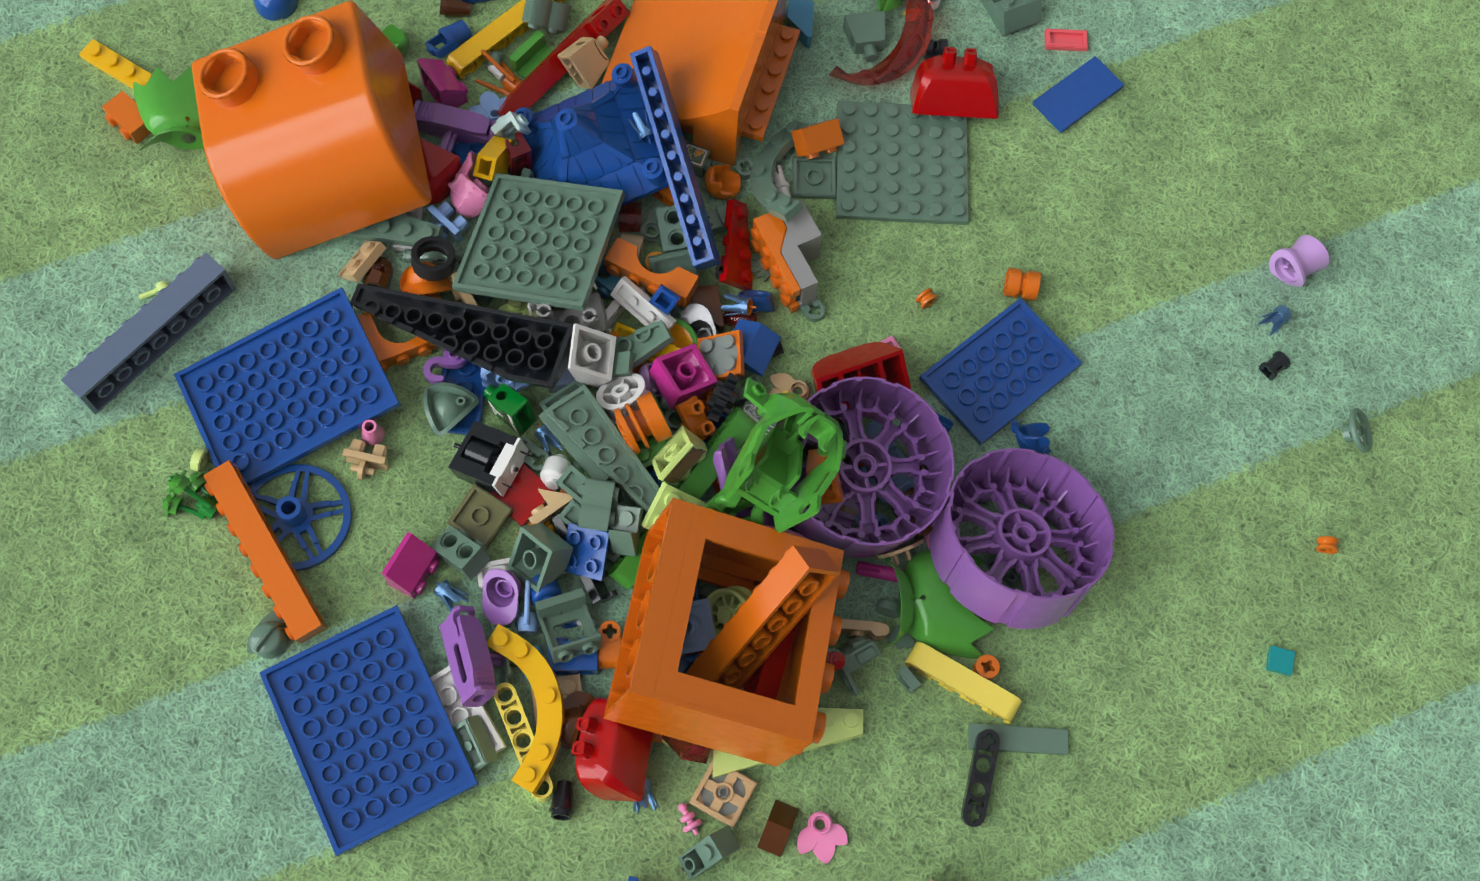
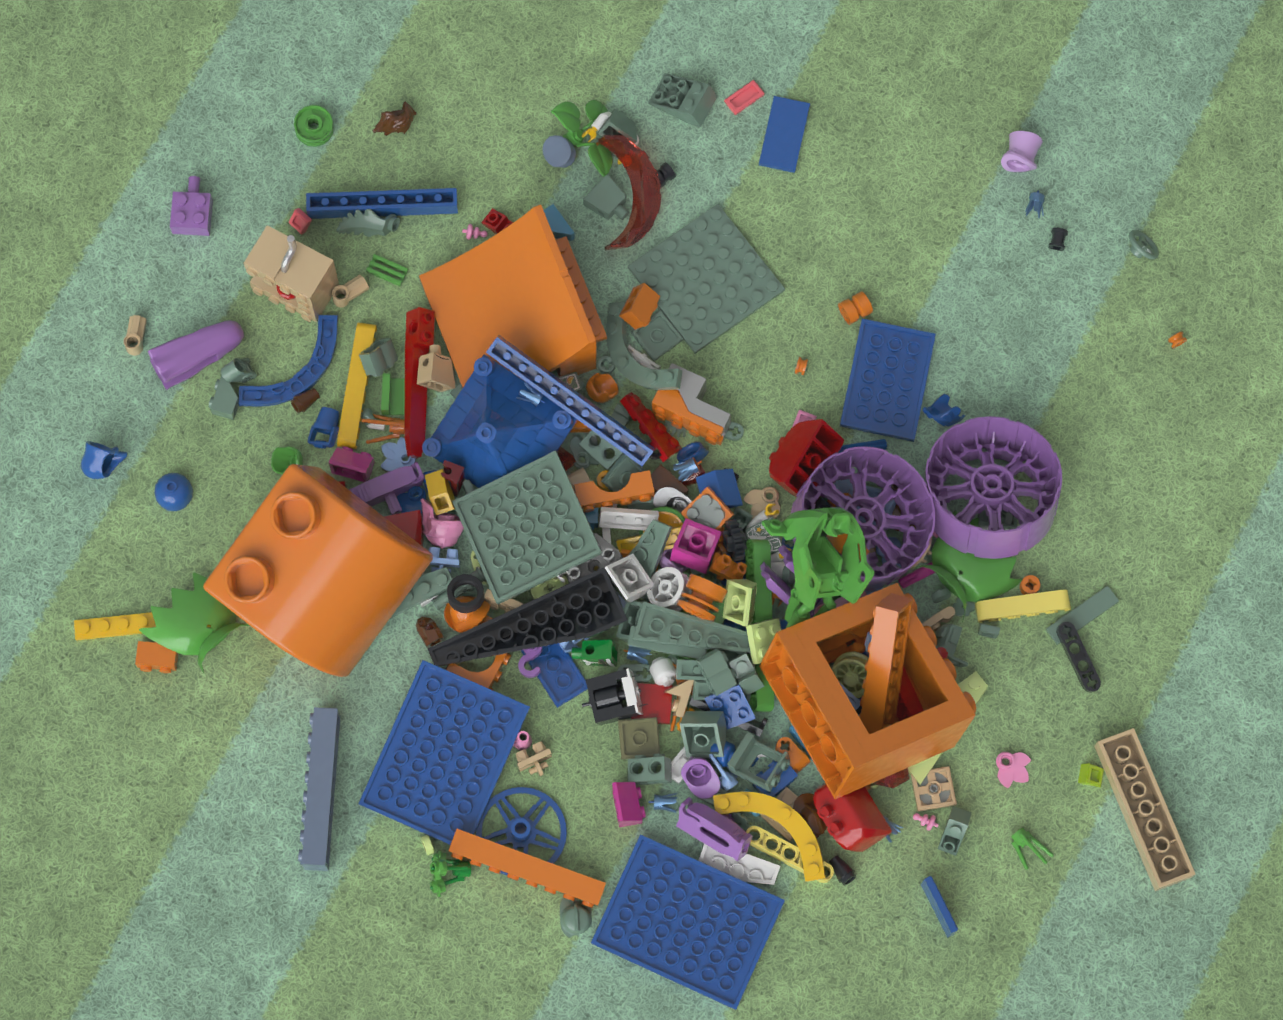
camera: 35 degrees left, 5 degrees up
(160, 285) = (293, 754): yellowish green hand -> none
(362, 261) = (411, 631): tan plate -> none
(446, 405) = (557, 683): sand green hat -> none
(476, 743) = (761, 877): sand green slope -> none
(509, 123) = (428, 461): light aqua bracket -> none
(623, 364) = (651, 567): sand green tile -> none
(664, 299) = (640, 503): blue slope -> none
(778, 828) = (983, 783): reddish brown slope -> none
(955, 86) = (703, 197): red hips -> none
(1280, 660) = (1202, 439): teal tile -> none

